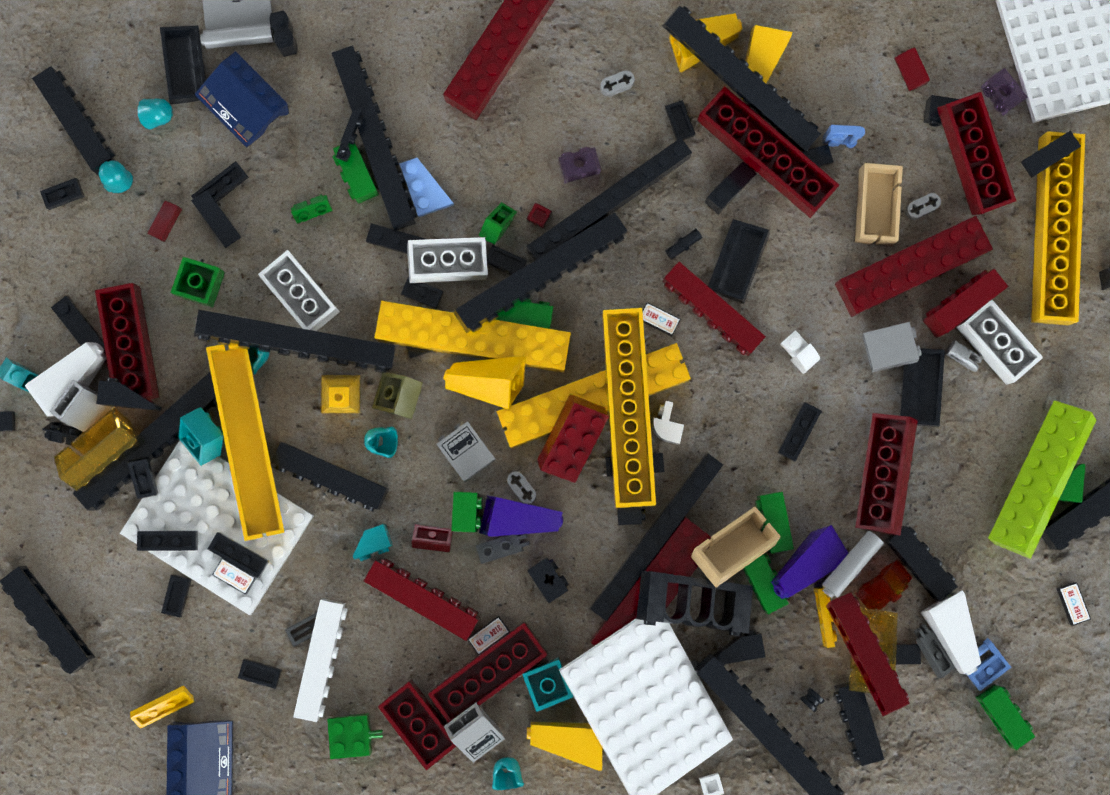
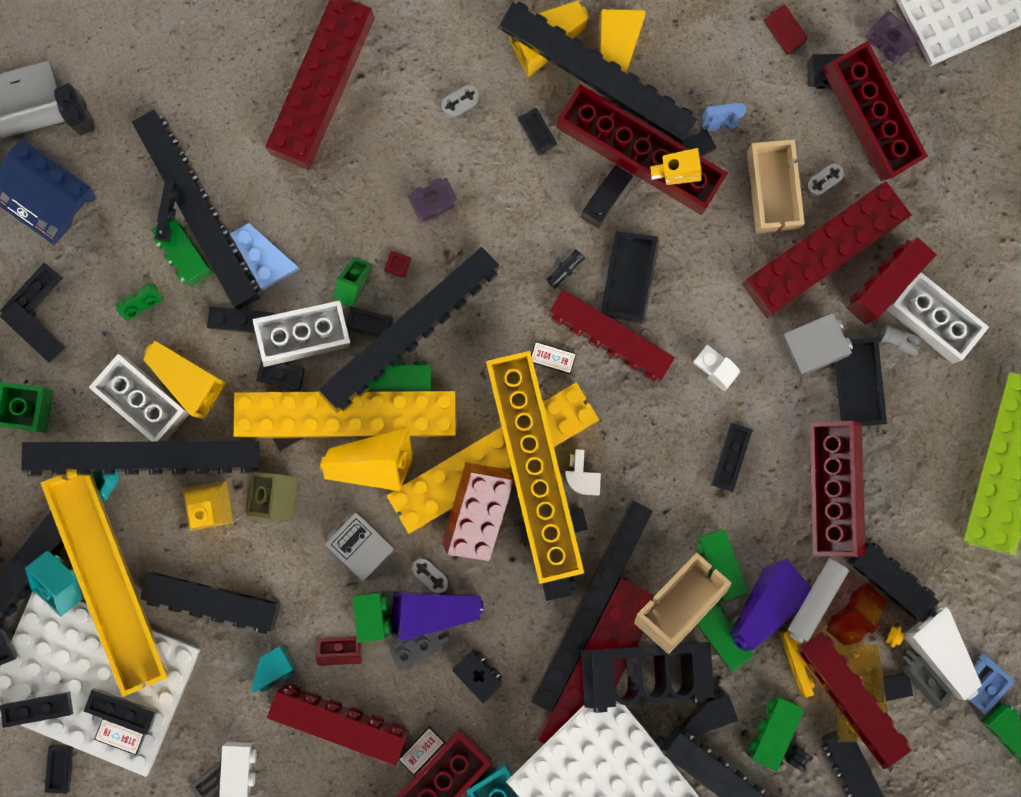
camera: 10 degrees left, 0 degrees up
(341, 282) = (187, 382): none -> yellow slope
(390, 441) = (273, 551): teal hair -> none
(612, 198) = (476, 231): black brick -> none
(795, 673) = (775, 732): none -> green brick
(804, 170) = (686, 164): none -> yellow torso
(914, 610) = (895, 636): none -> yellow plate
(1050, 154) = (957, 97): black tile -> none
(1058, 237) = (979, 179): yellow brick -> none

